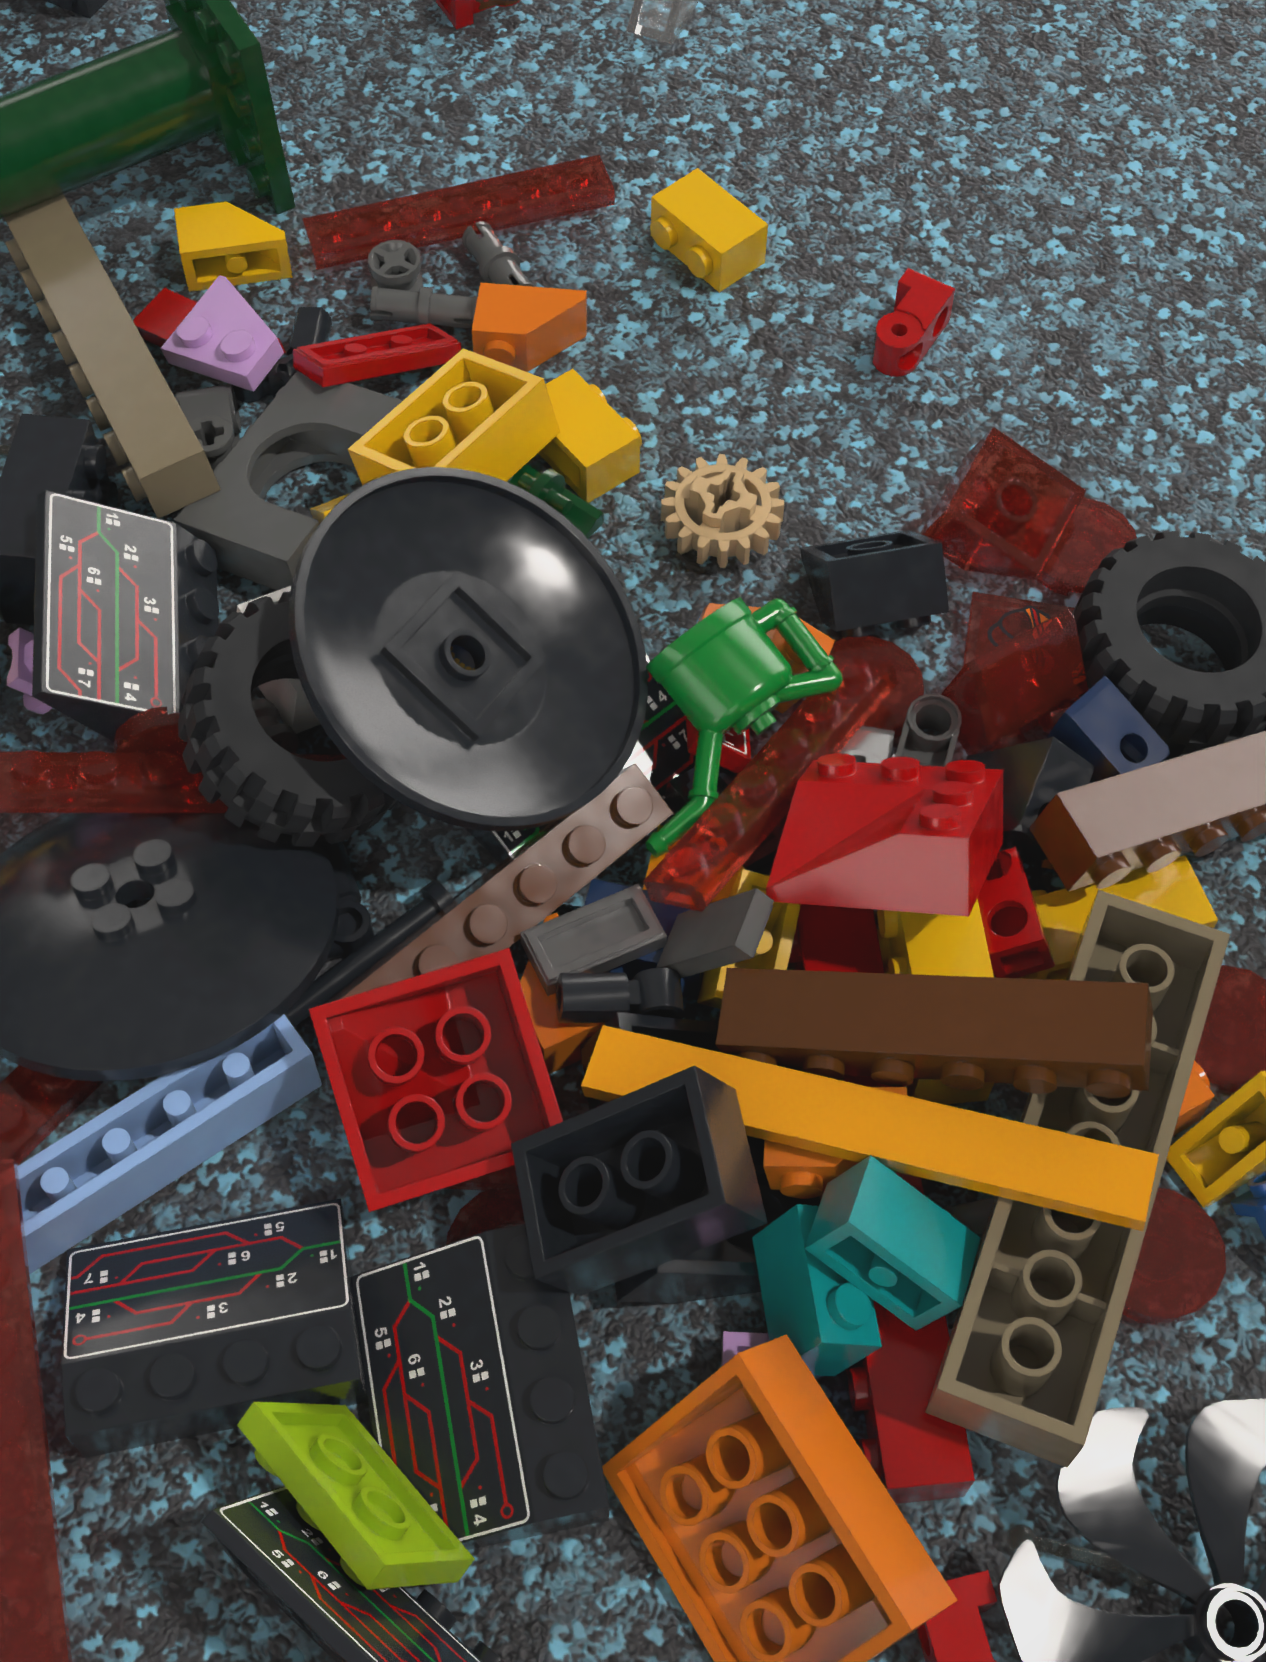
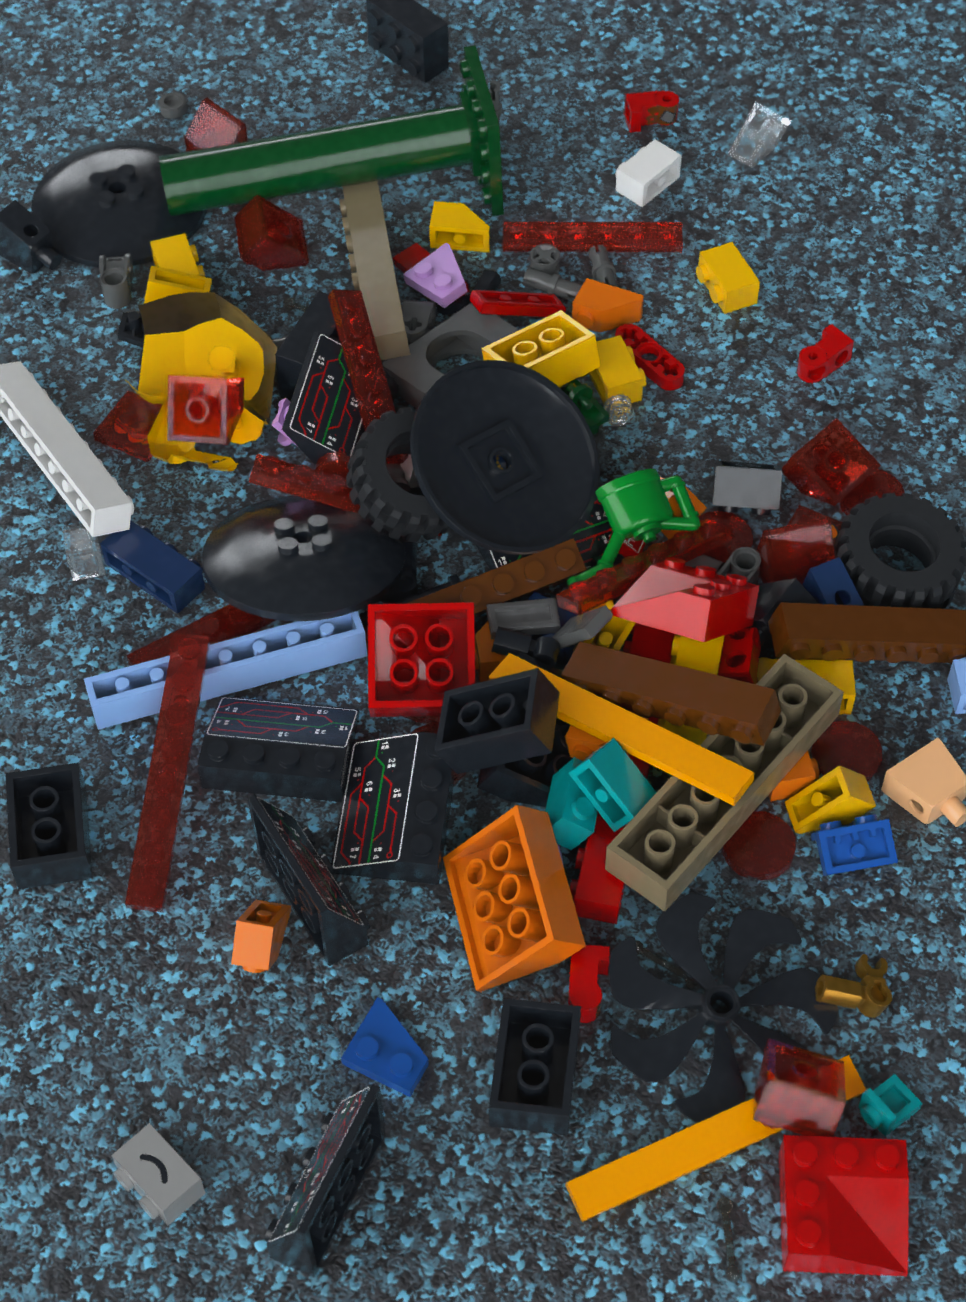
camera: 20 degrees right, 5 degrees down
(142, 523) = (362, 358): none -> clear red plate
(354, 1495) = (321, 826): lime plate -> none
(513, 86) = (648, 172): none -> white brick
(614, 498) = (619, 410): none -> clear bush
(647, 416) = (653, 369): none -> red beam
(722, 510) = (676, 429): tan gear -> none

